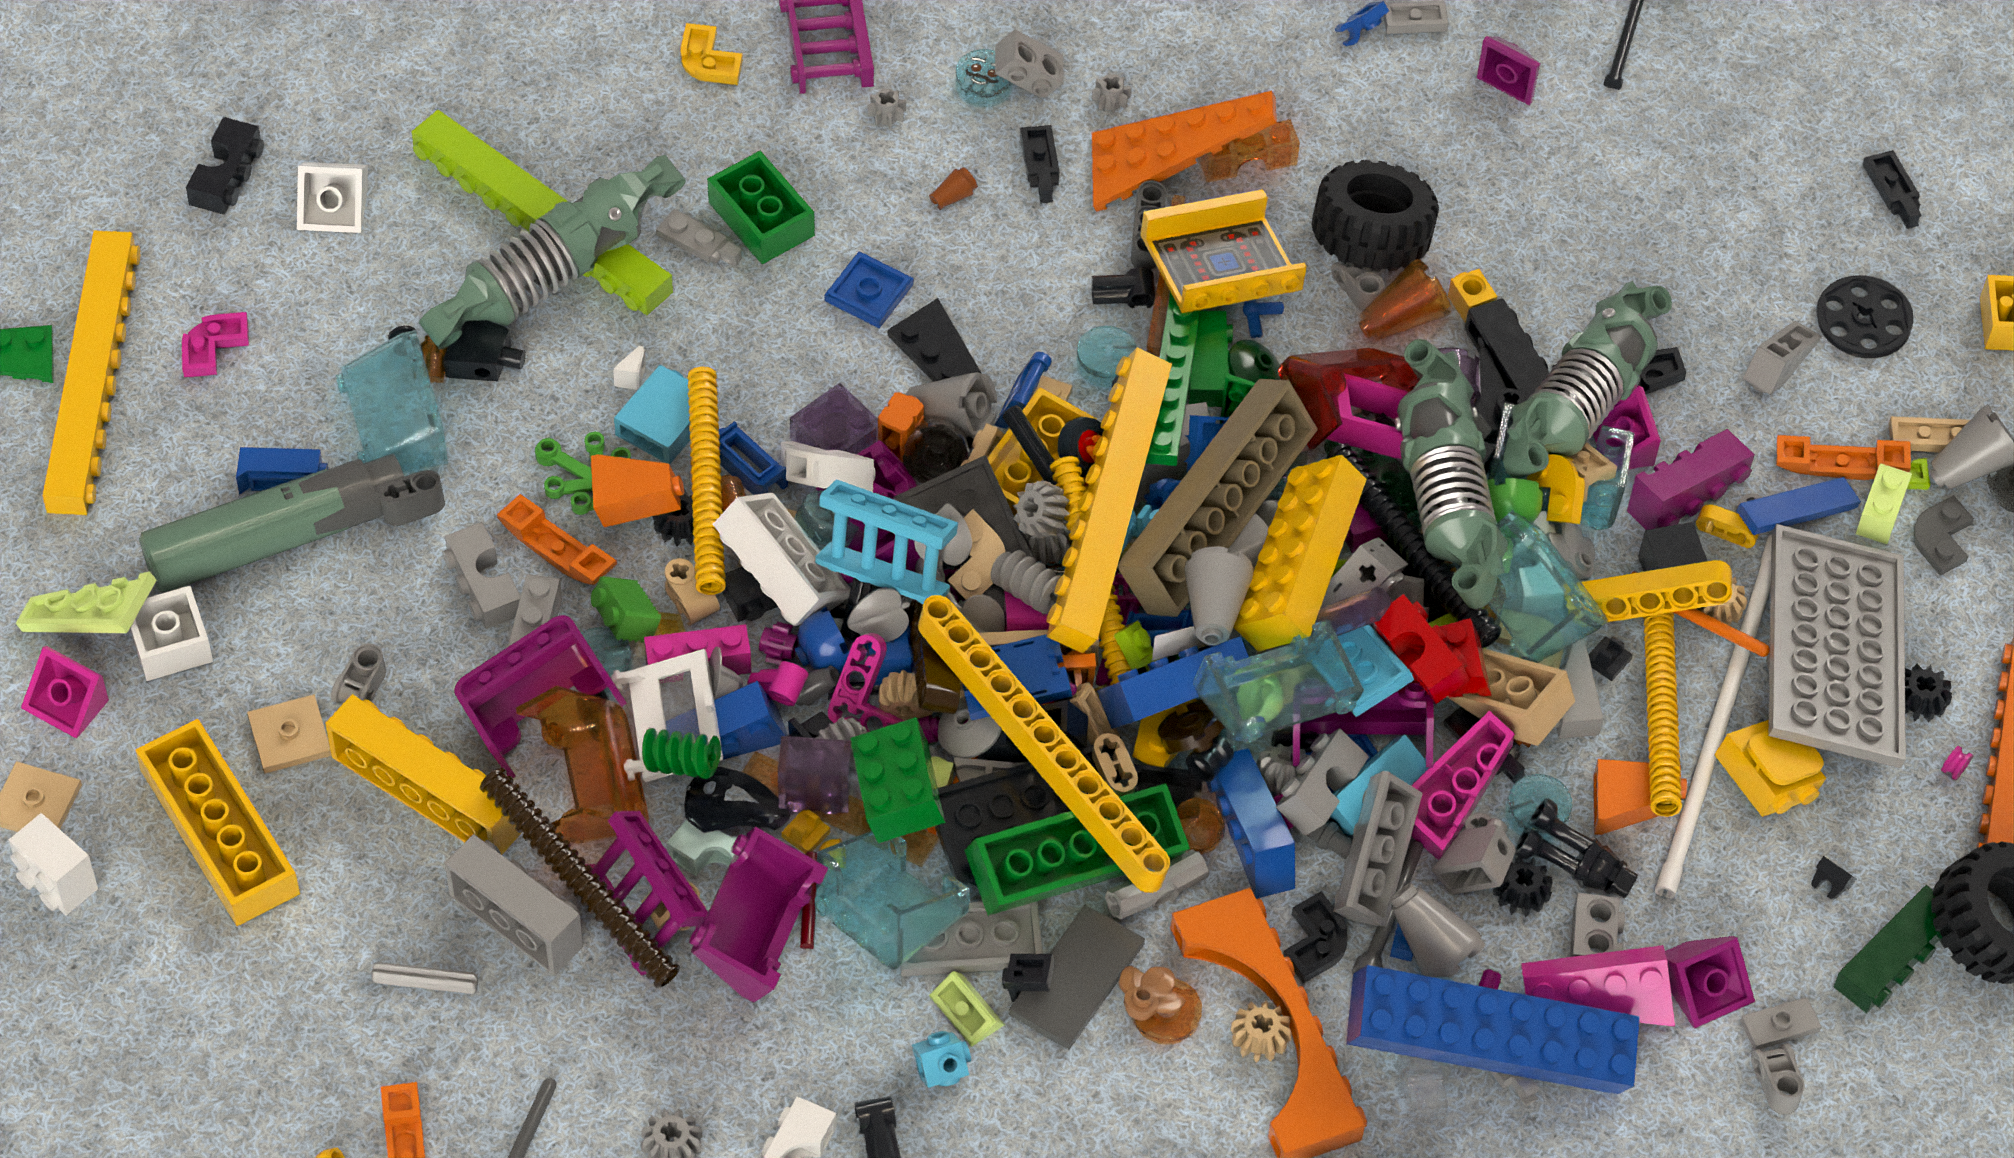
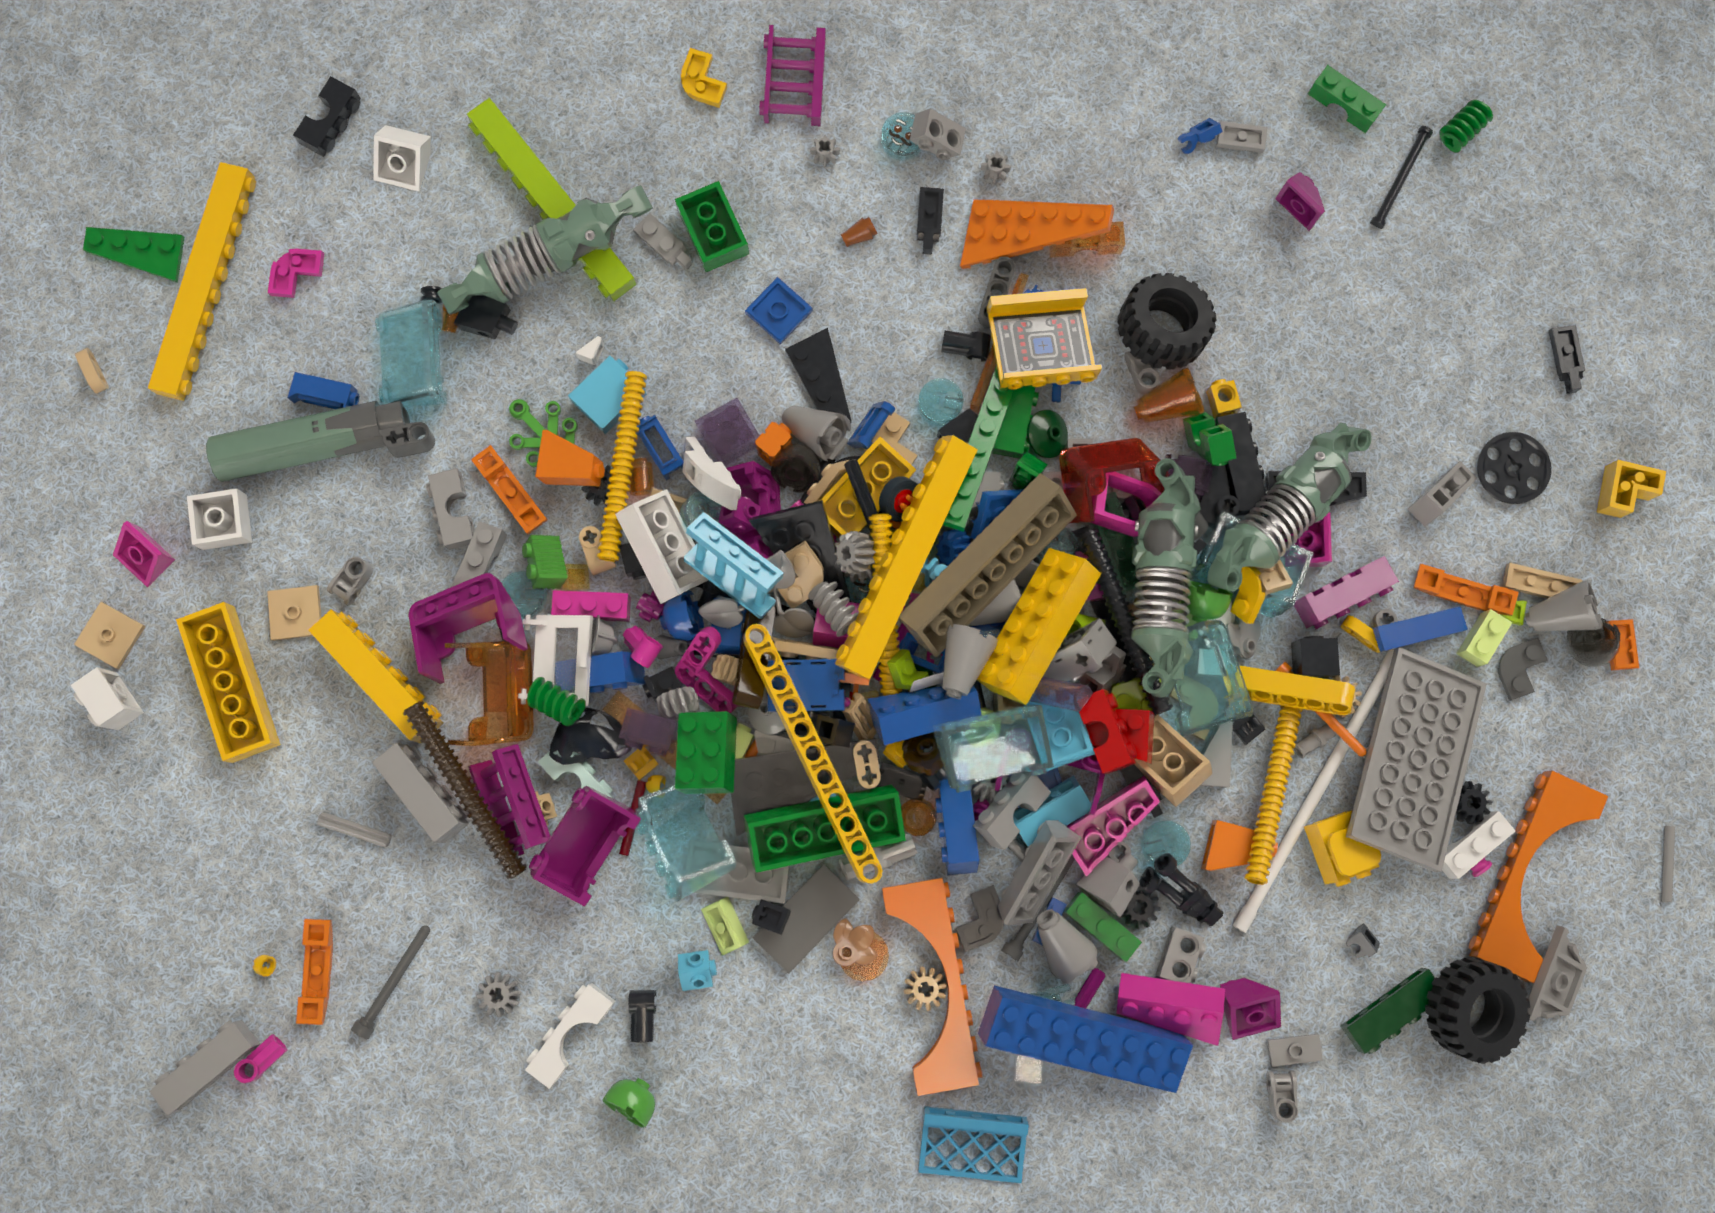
camera: 10 degrees right, 25 degrees up
(89, 609) = (163, 492): yellowish green wing -> none
(1467, 328) = (1209, 441): none -> green arch
(1498, 920) = (1102, 926): none -> green brick
(1703, 654) = (1316, 739): none -> light grey pin
(1943, 733) = (1476, 845): none -> white arch

